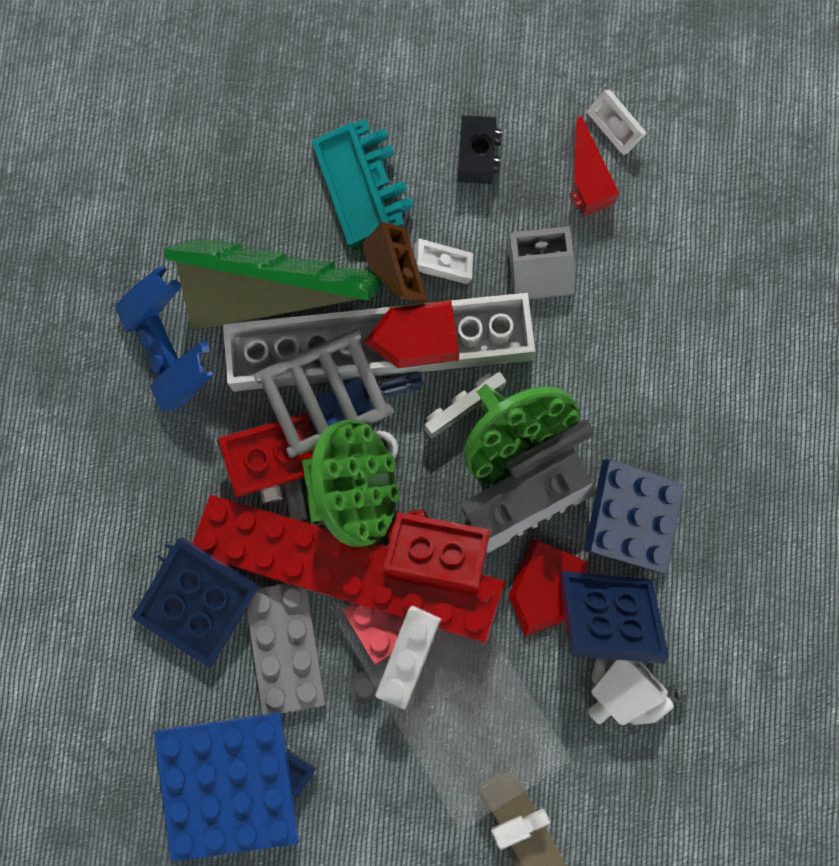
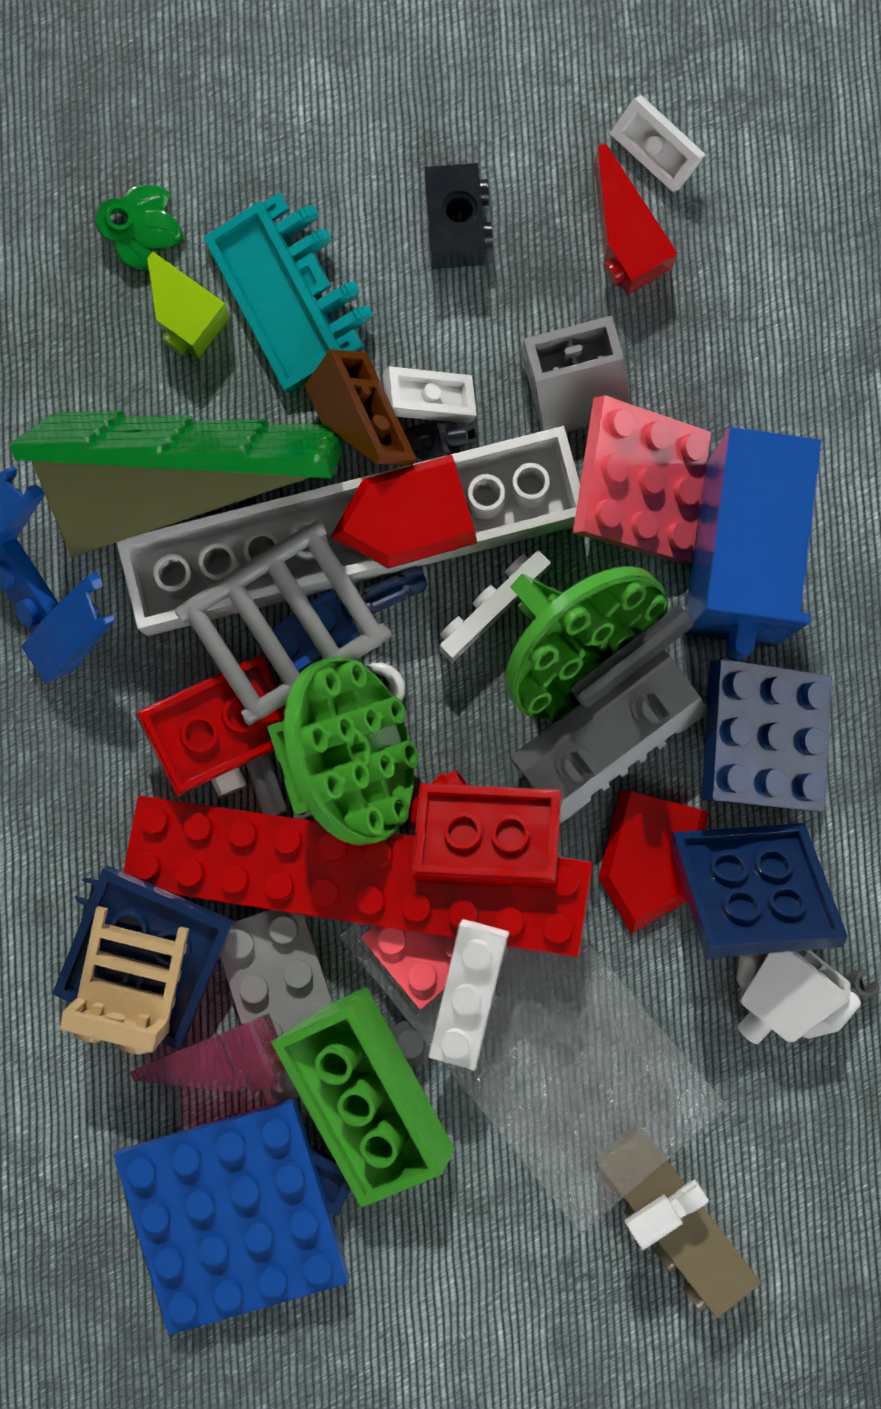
camera: 10 degrees left, 5 degrees up
(176, 636) = (121, 1012): none -> tan plate
(240, 679) = (221, 1062): none -> clear pink slope
(275, 127) = (145, 226): none -> green plate
(292, 184) = (184, 309): none -> lime slope
(328, 719) = (364, 1098): none -> bright green slope
(445, 290) = (439, 438): none -> black piece
(574, 336) = (641, 480): none -> coral plate
(641, 384) = (753, 540): none -> blue container

